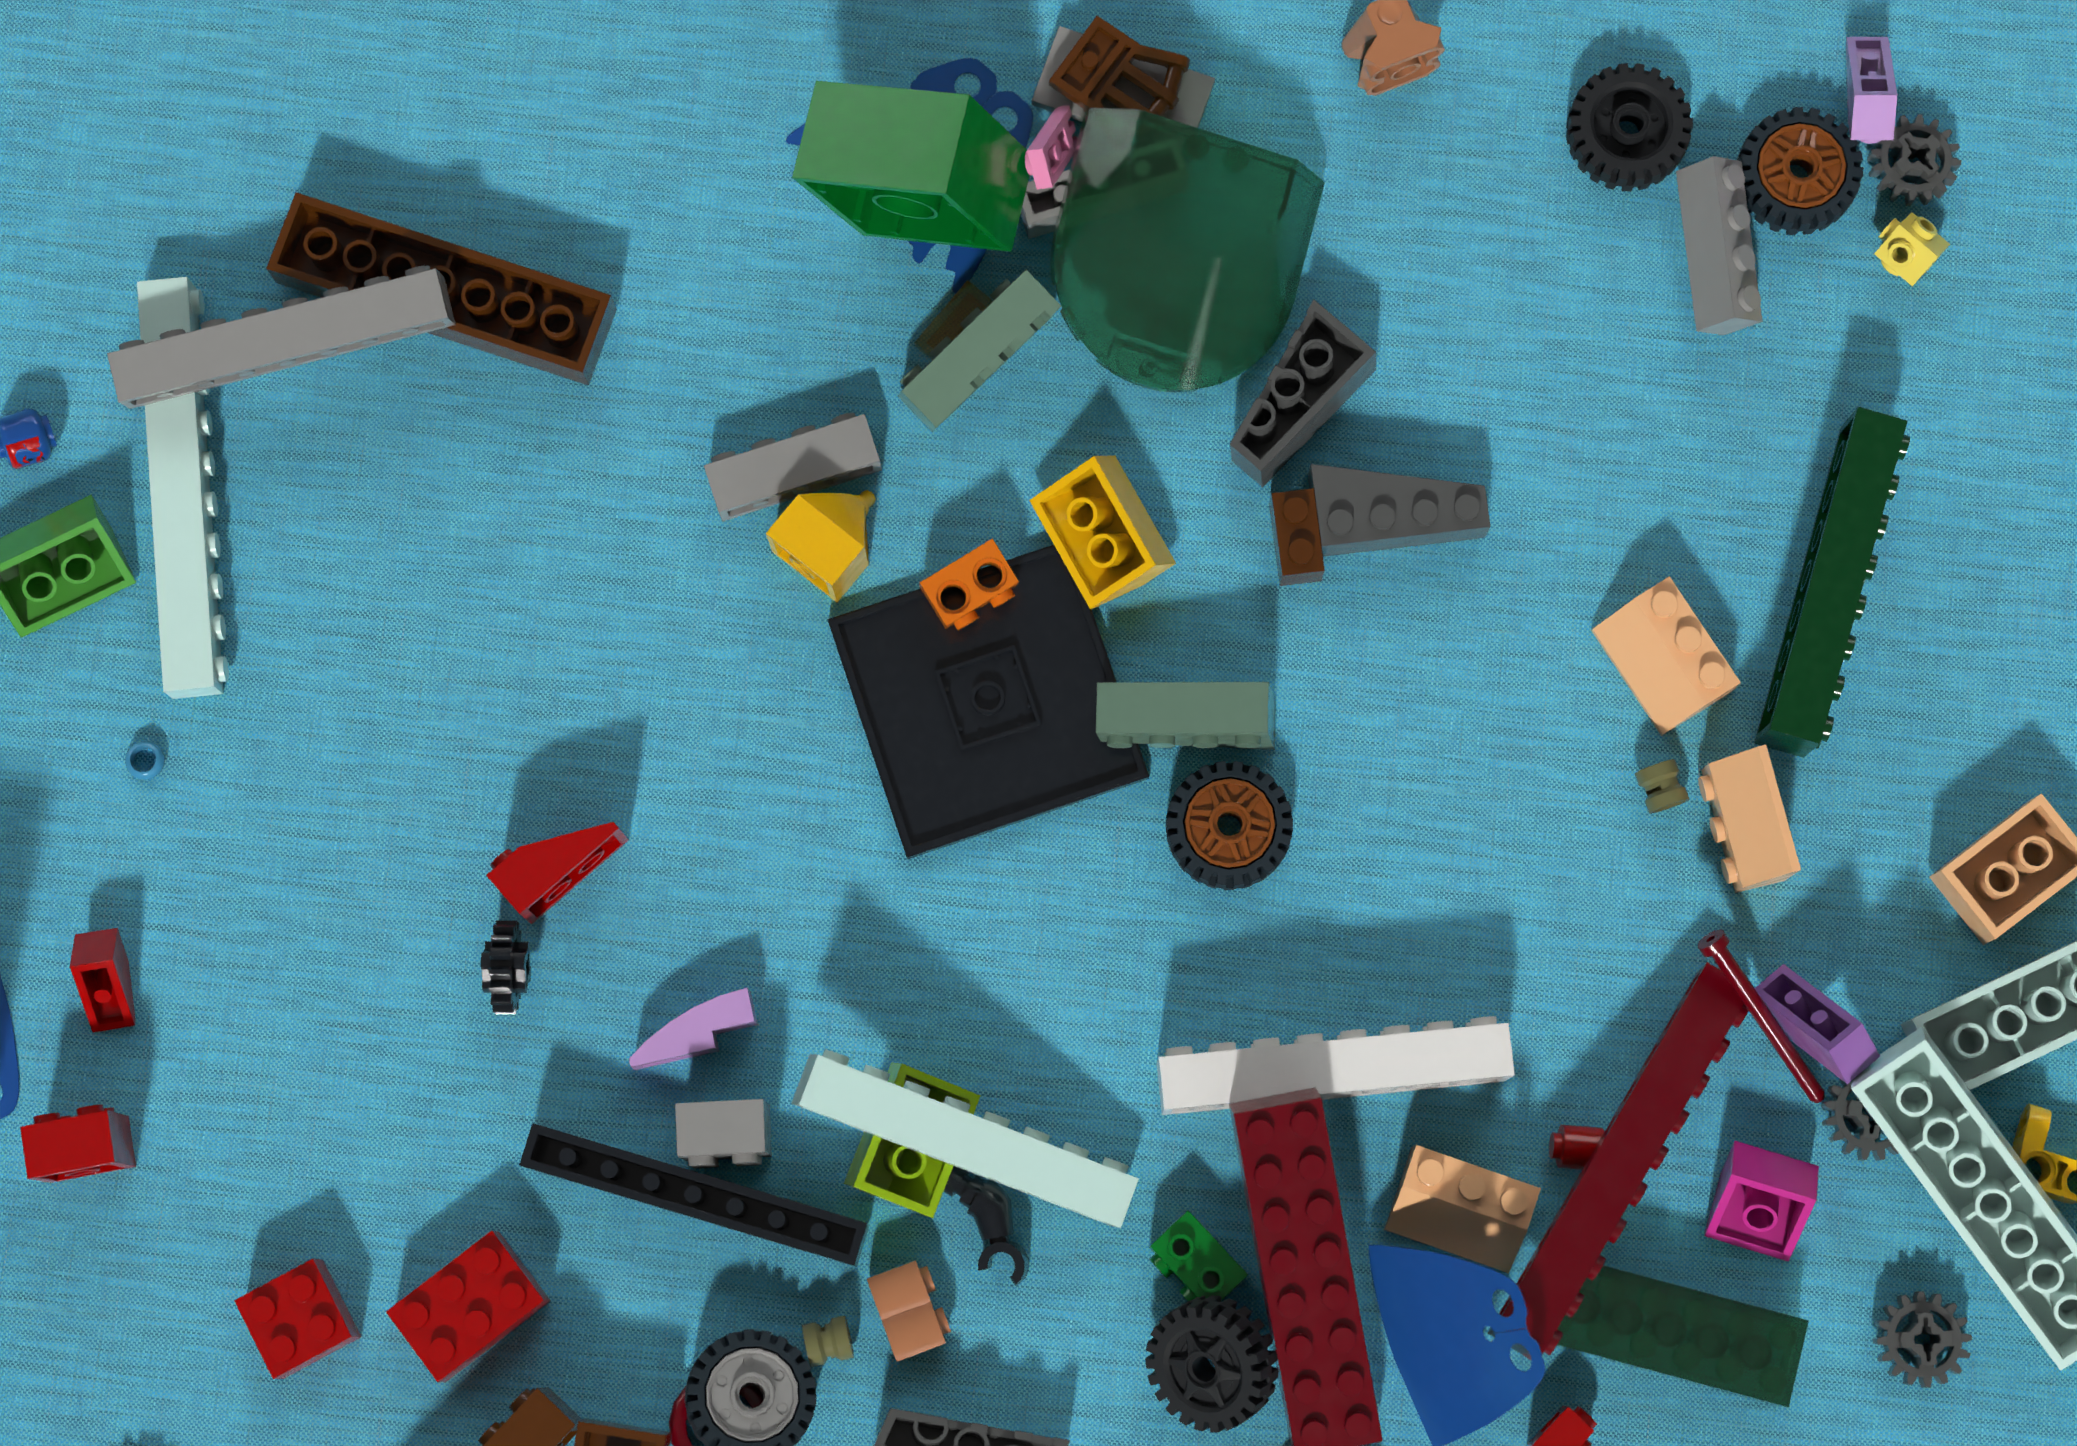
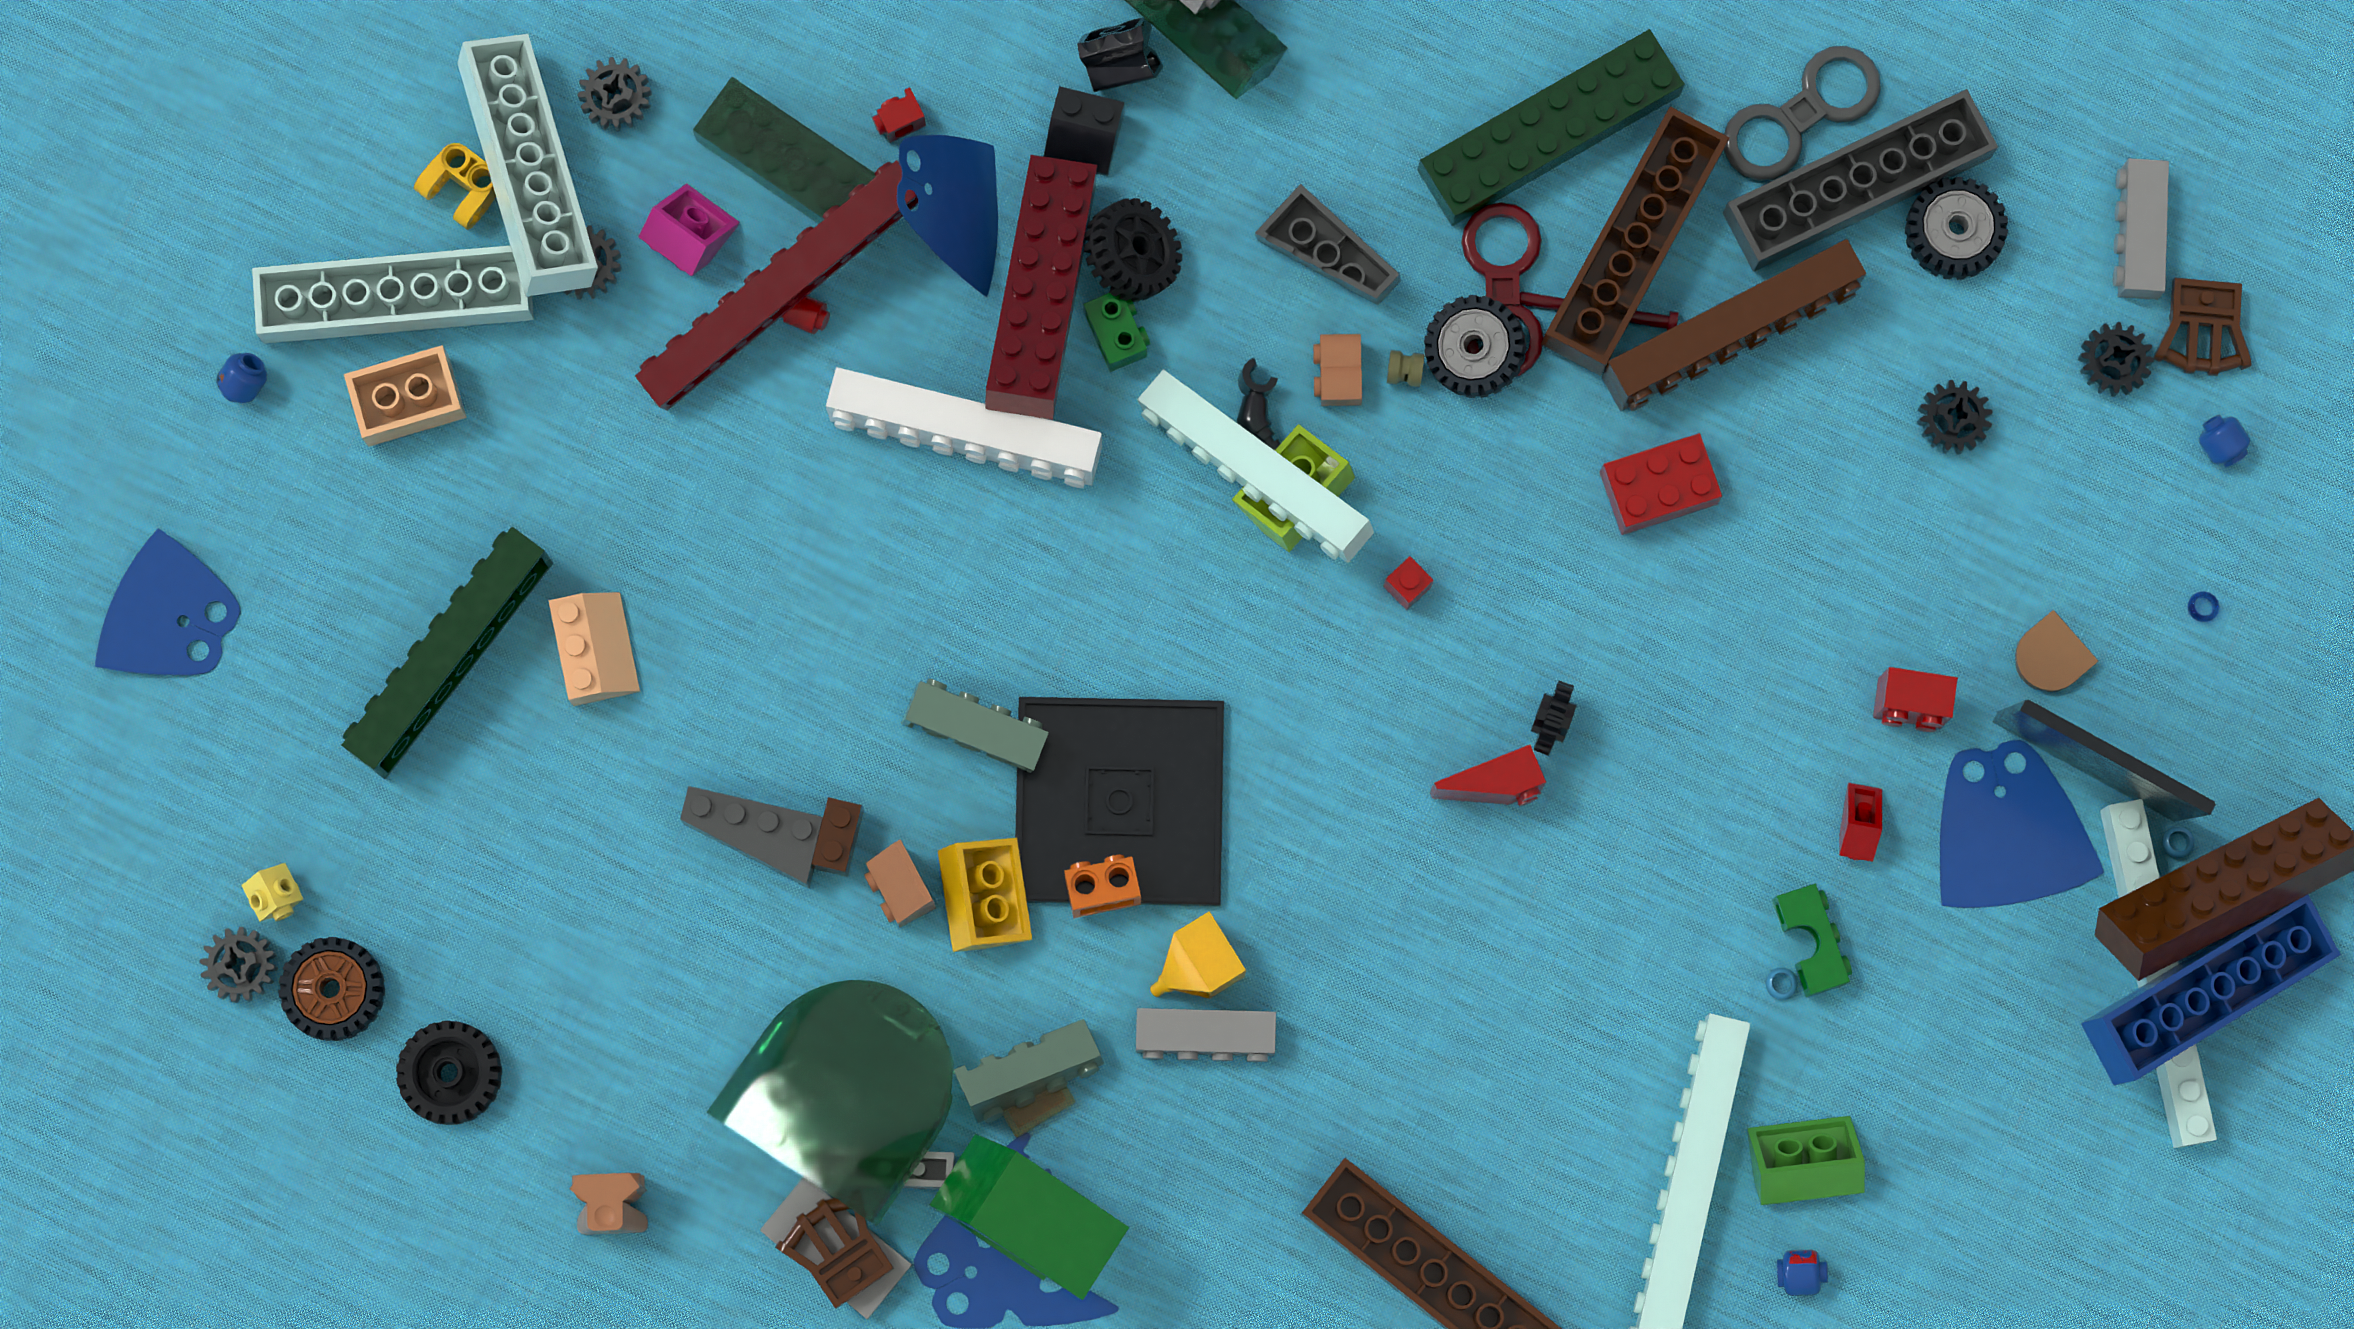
camera: 165 degrees left, 0 degrees up
(98, 791) = (1806, 910): none -> green arch
(281, 338) = (1572, 1266): light grey brick -> none
(297, 1318) = (1789, 519): red brick -> none
(694, 1195) = (1467, 503): black brick -> none
(696, 1030) = (1427, 626): lavender slope -> none
(723, 1131) = (1431, 539): light grey brick -> none
(734, 1073) = (1408, 583): none -> red brick
(1051, 148) = (911, 1208): bright pink hinge -> none
(1203, 507) = (899, 884): none -> nougat slope
(1236, 792) = (972, 664): wheel -> none
(1302, 392) = (785, 950): dark grey wedge -> none
(1462, 1208) = (907, 301): light nougat slope -> none
(1662, 786) = (637, 551): olive wheel -> none
(1715, 945) = (650, 409): dark red bar -> none
(1719, 246) = (420, 947): light grey brick -> none
(1749, 820) = (584, 500): light nougat slope -> none
(1818, 1024) = (600, 330): medium lavender brick -> none
(1870, 89) = (248, 1031): lavender slope -> none

